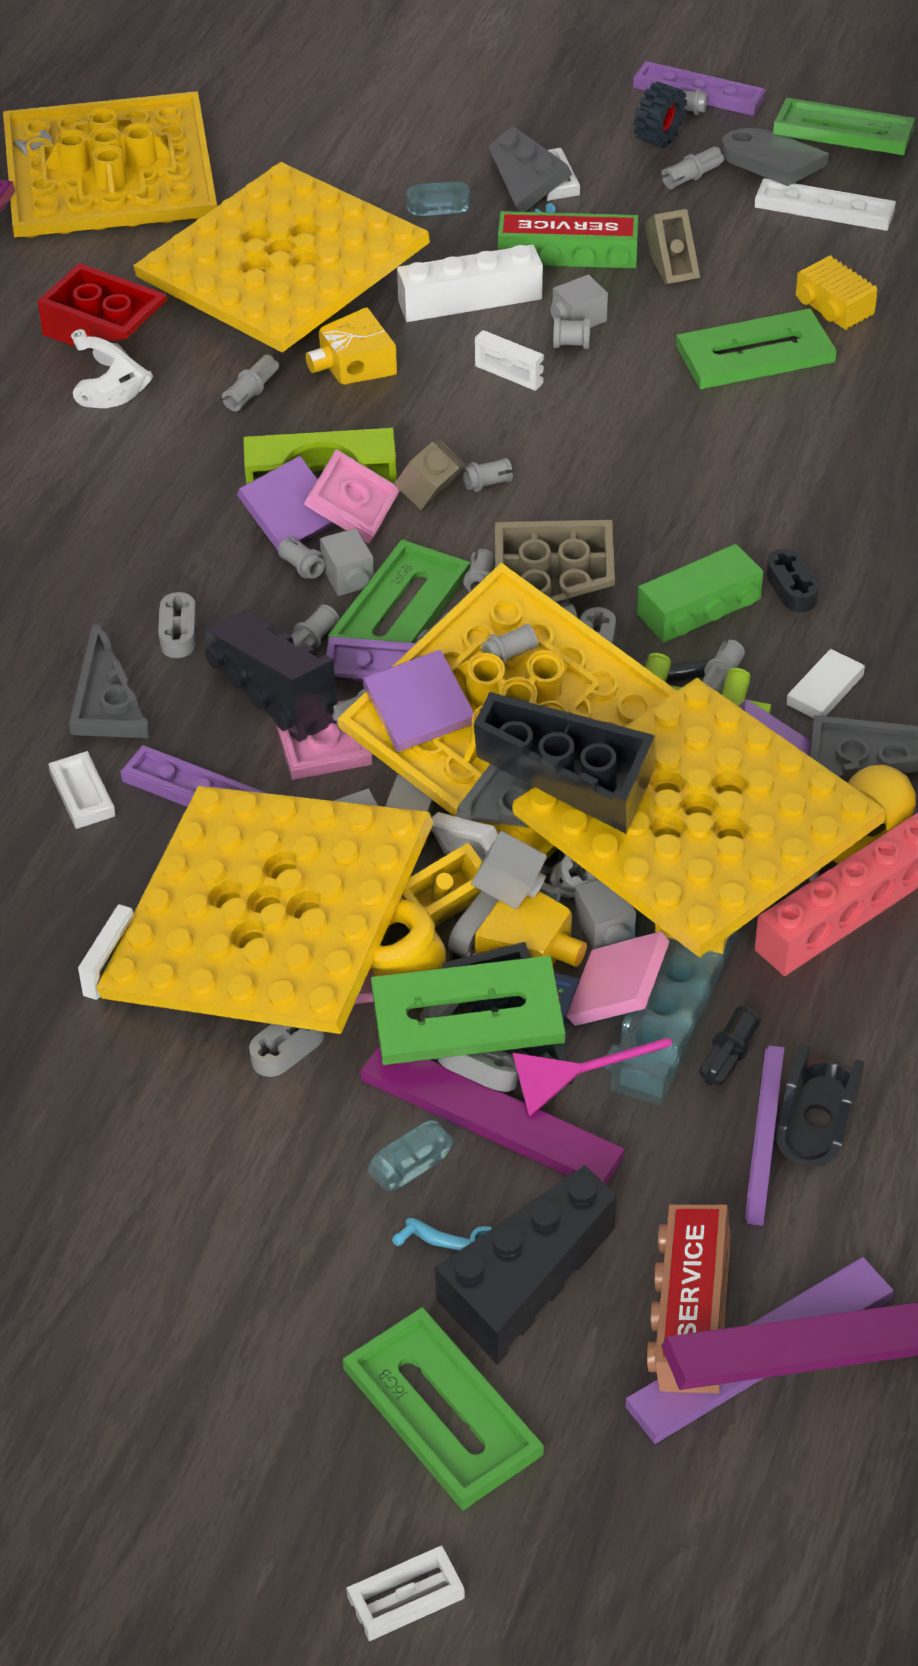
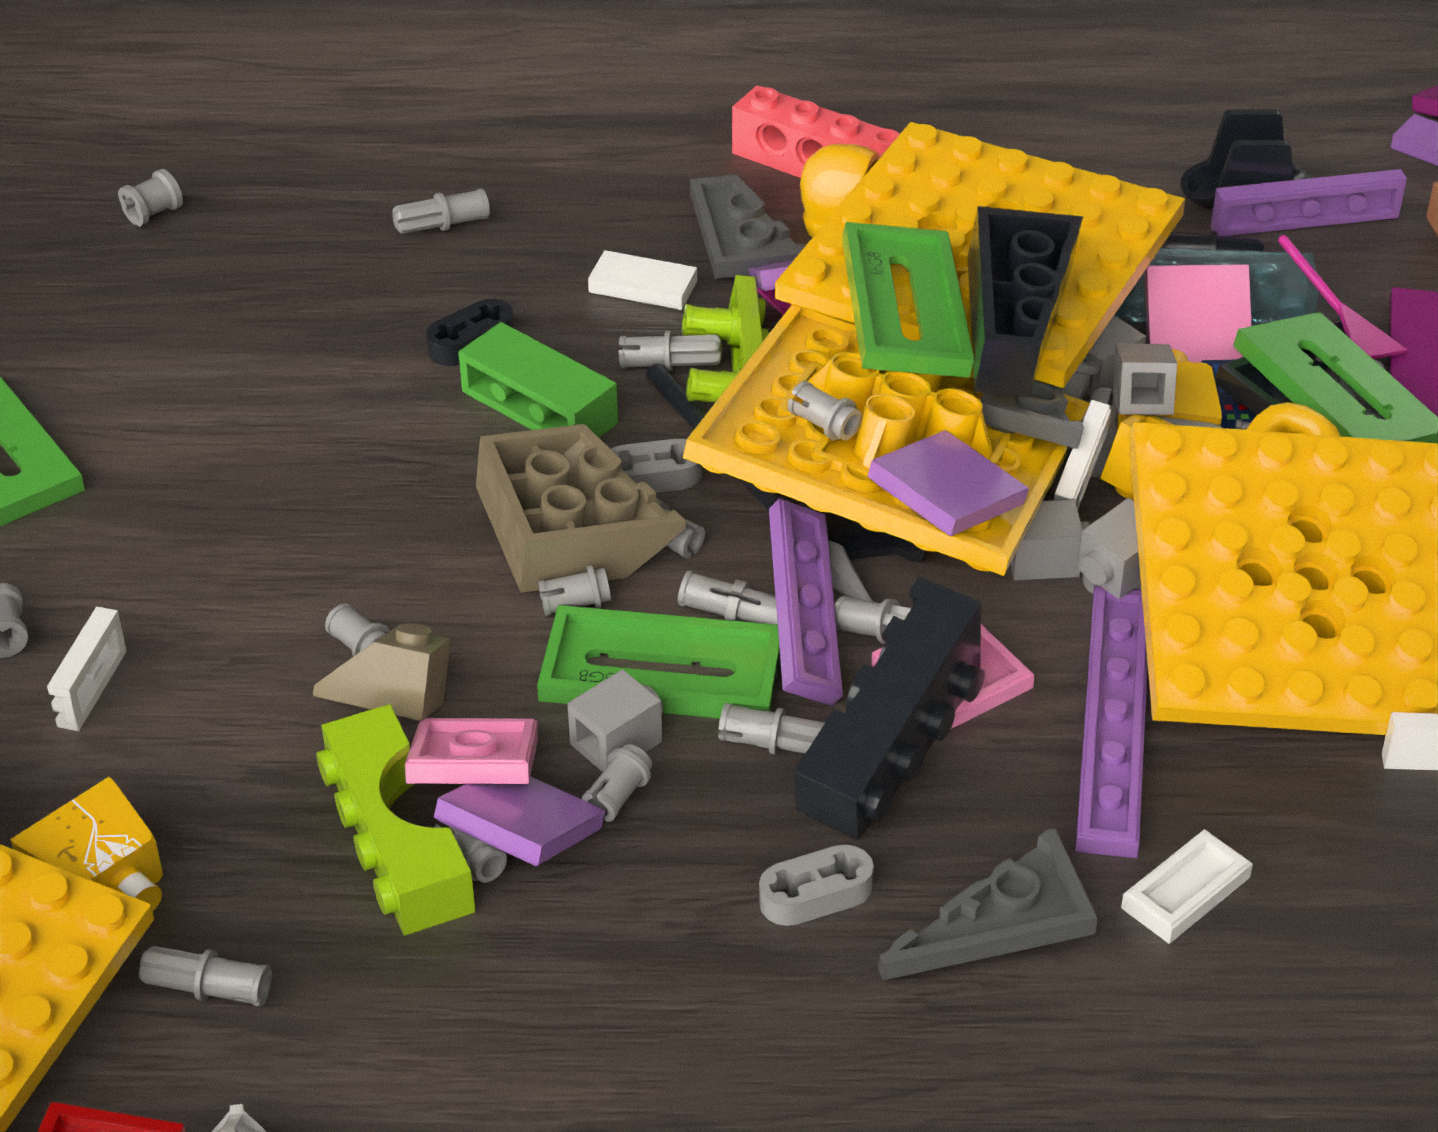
camera: 110 degrees left, 5 degrees down
(675, 705) = (936, 295): none -> bright green piece

